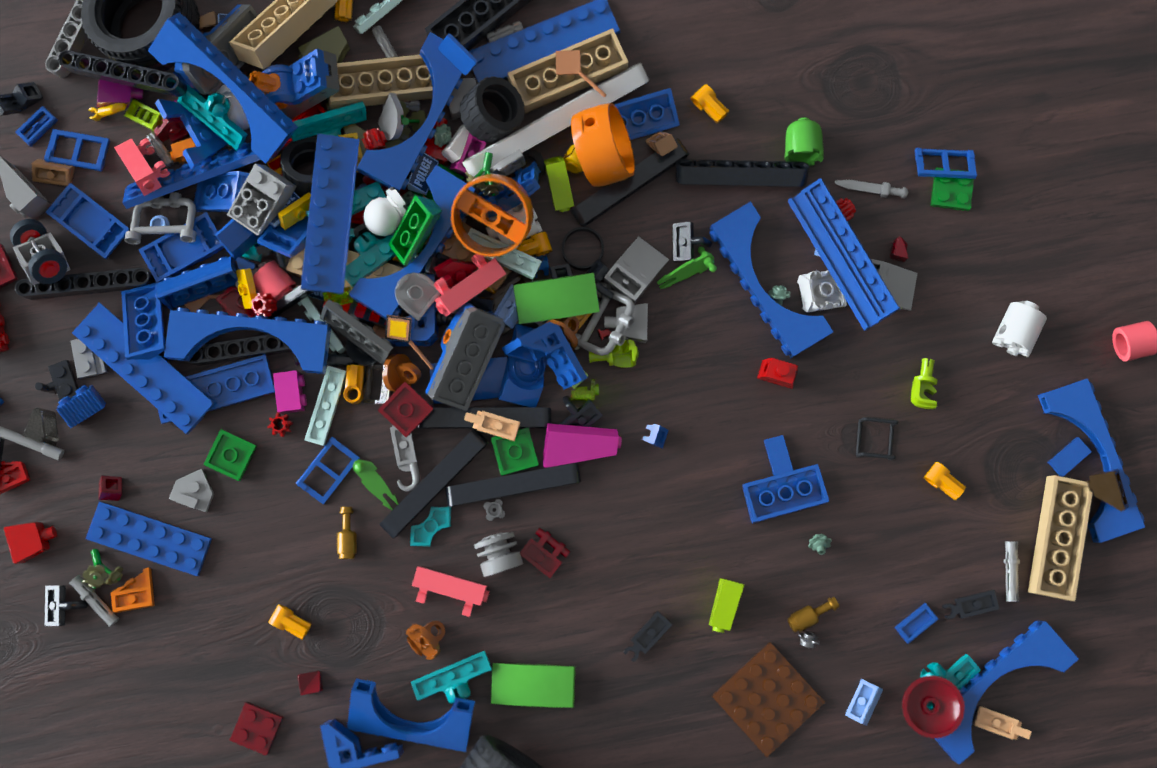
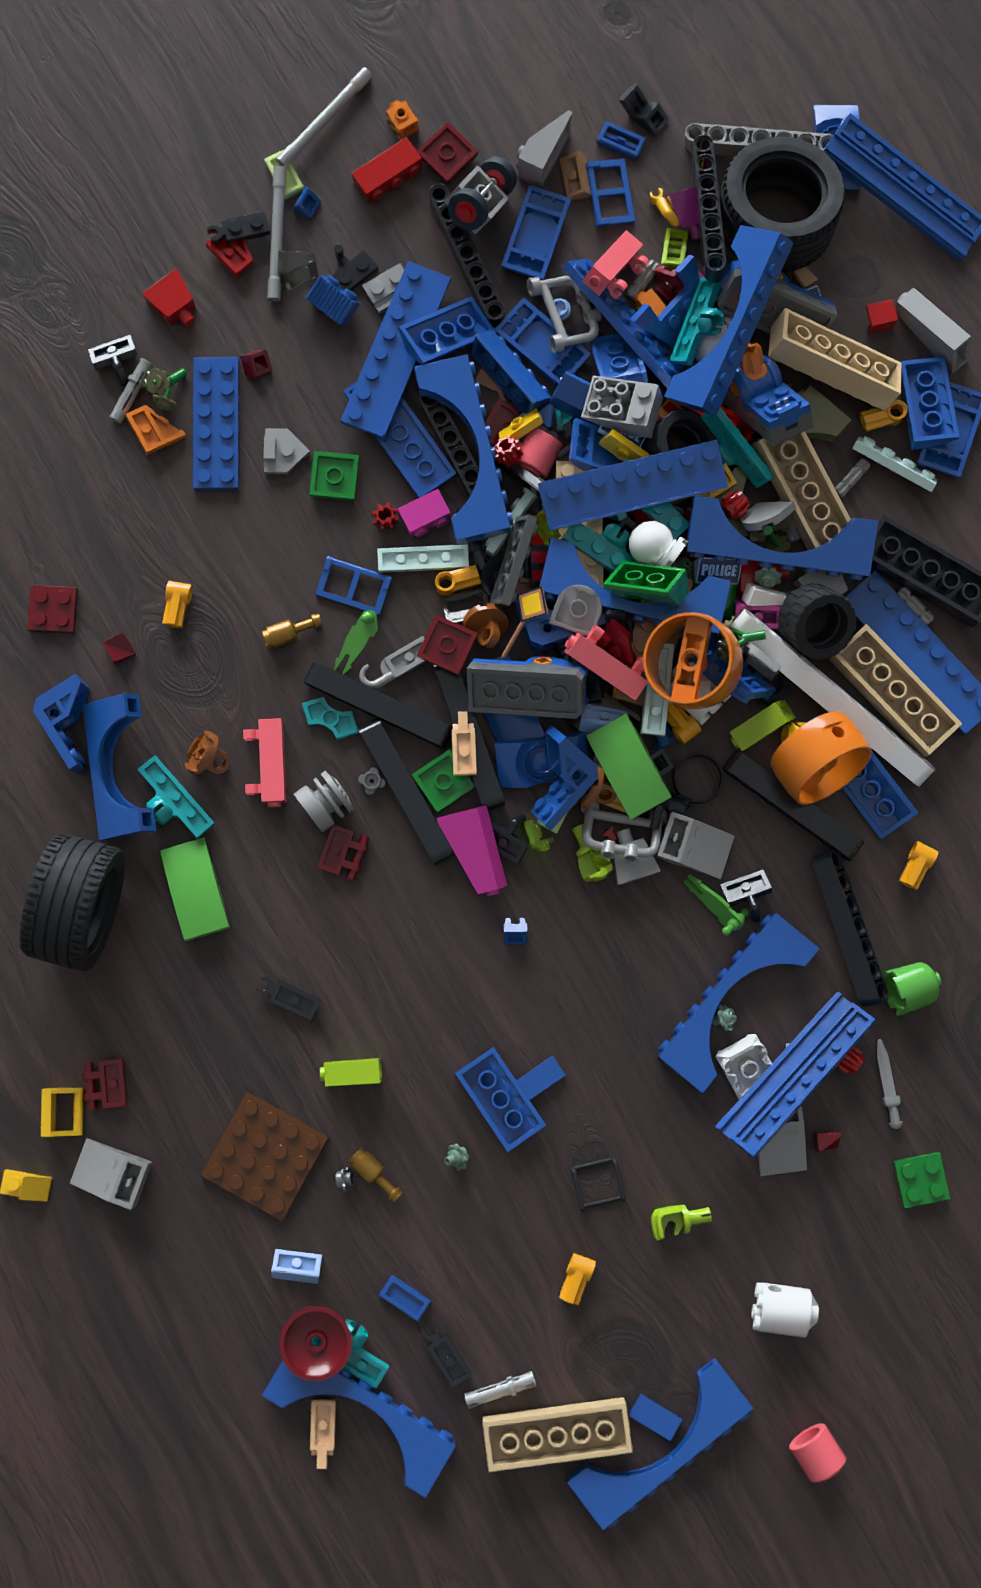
camera: 70 degrees right, 0 degrees up
(457, 54) = (863, 560): blue slope -> none
(569, 64) = (902, 688): nougat piece -> none
(662, 143) = (850, 825): medium nougat slope -> none
(778, 372) = (634, 1046): red torso -> none
(972, 174) = (936, 1165): blue window -> none
(1109, 488) = (631, 1472): dark brown slope -> none

